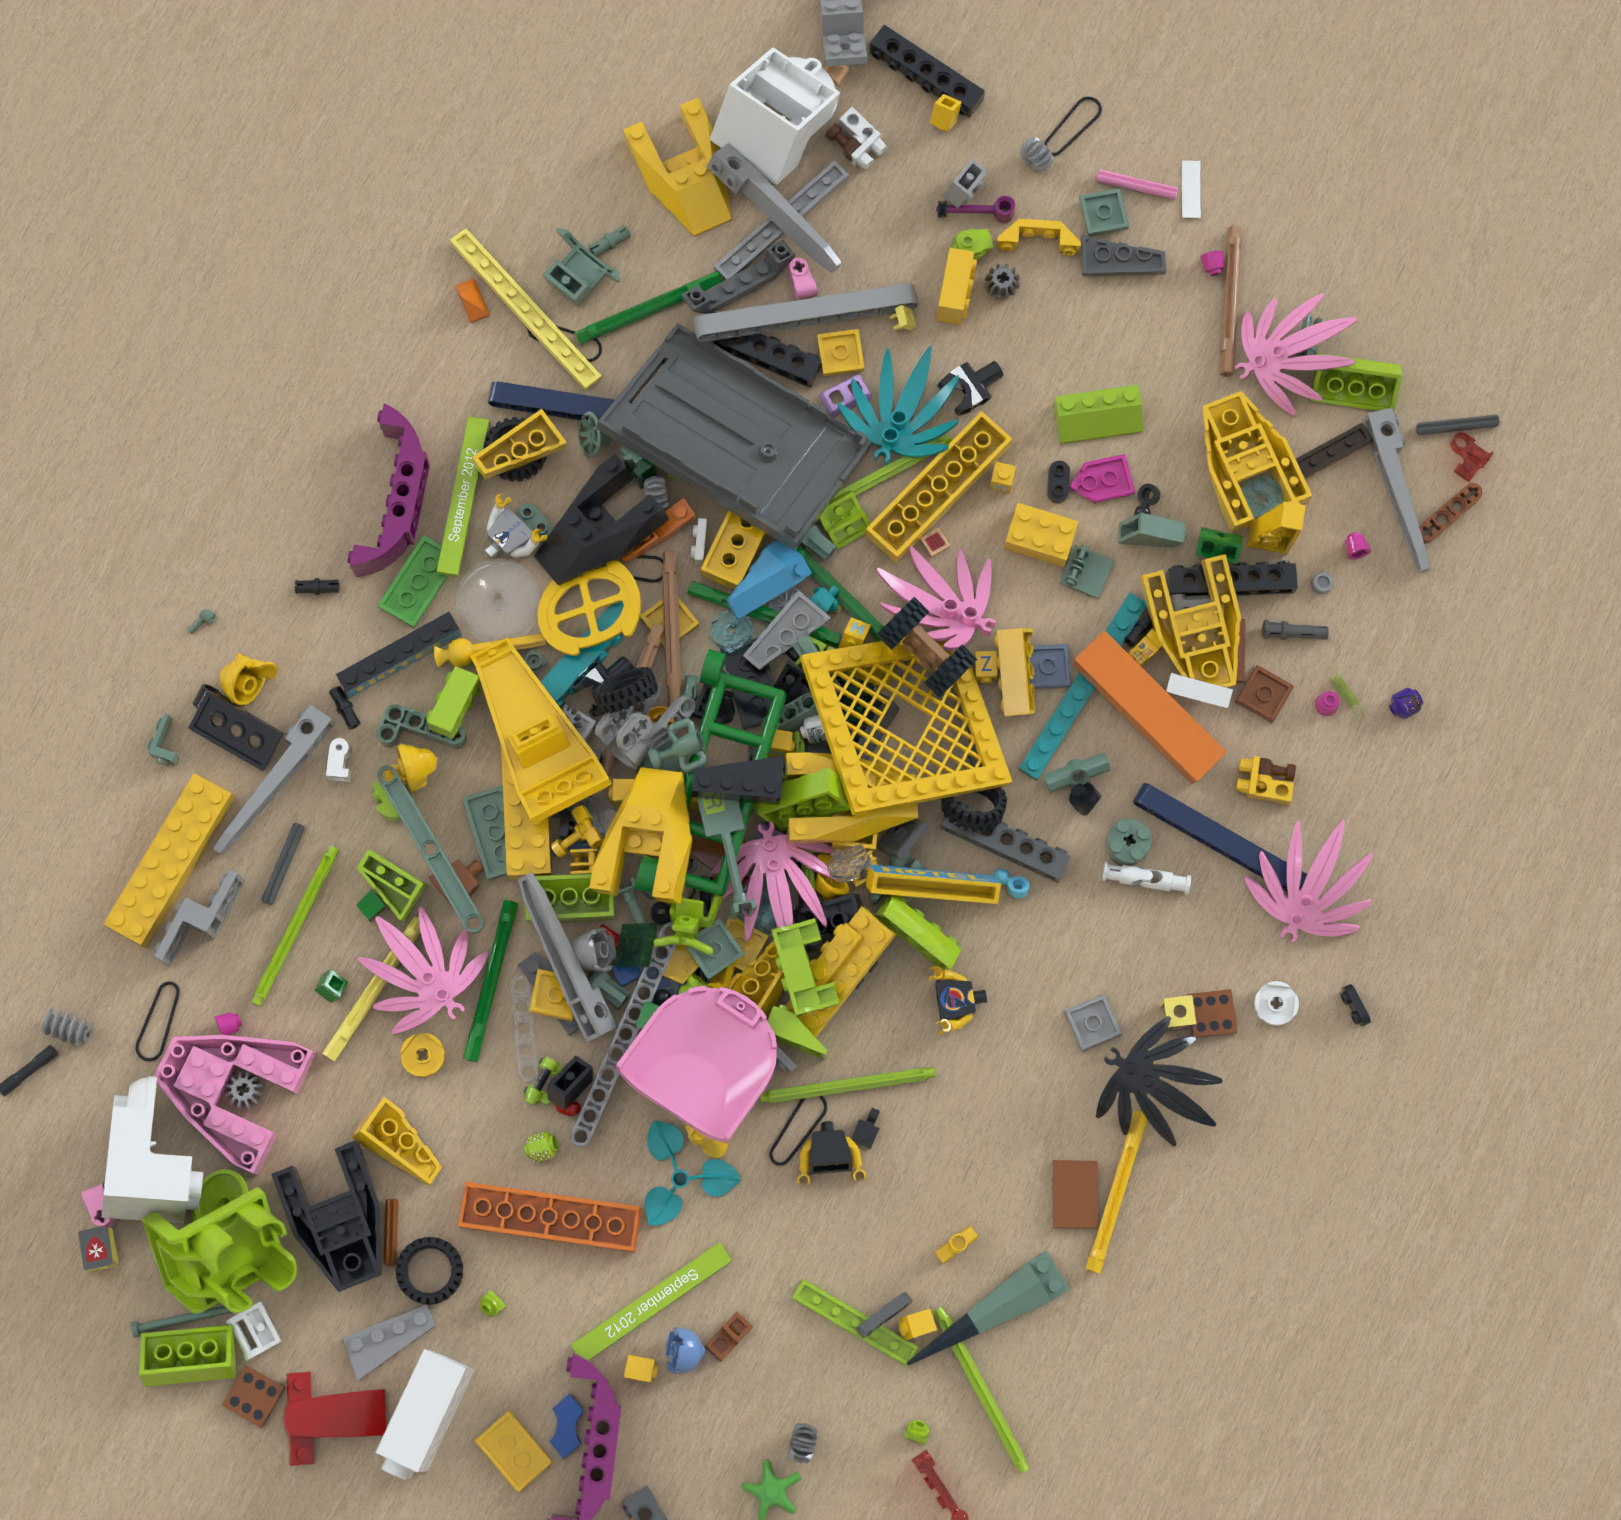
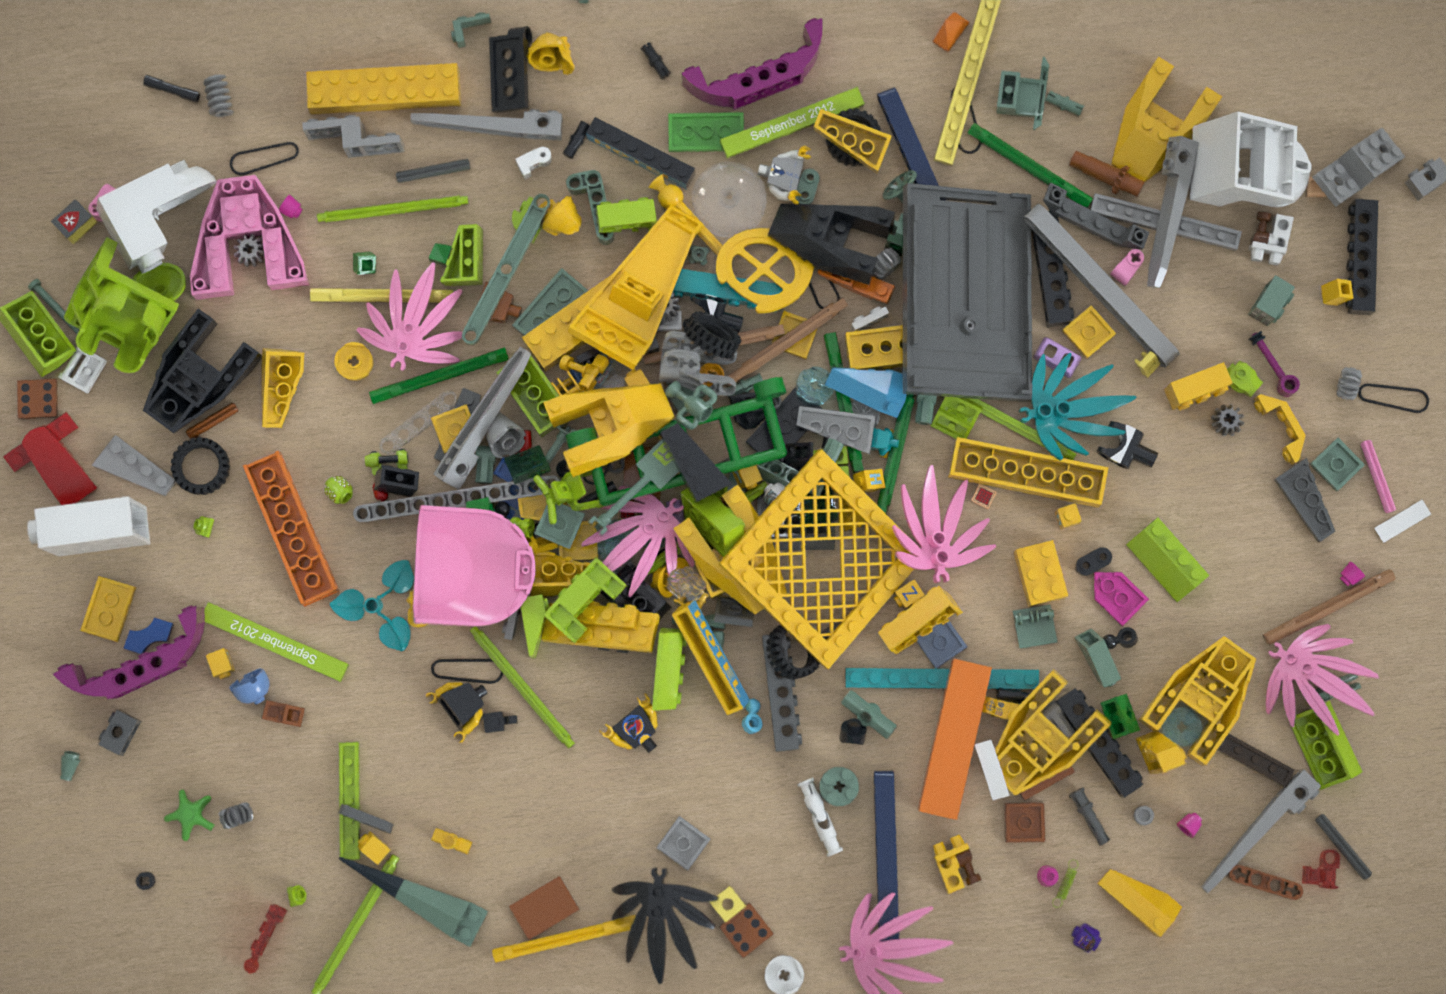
camera: 60 degrees right, 5 degrees up
(703, 243) = (1108, 174): none -> dark orange gear
(917, 173) = (1272, 300): none -> sand green brick
(925, 647) = (882, 567): black plate -> none
(966, 181) = (1290, 342): light grey brick -> none
(1405, 631) = (1148, 905): none -> yellow wedge

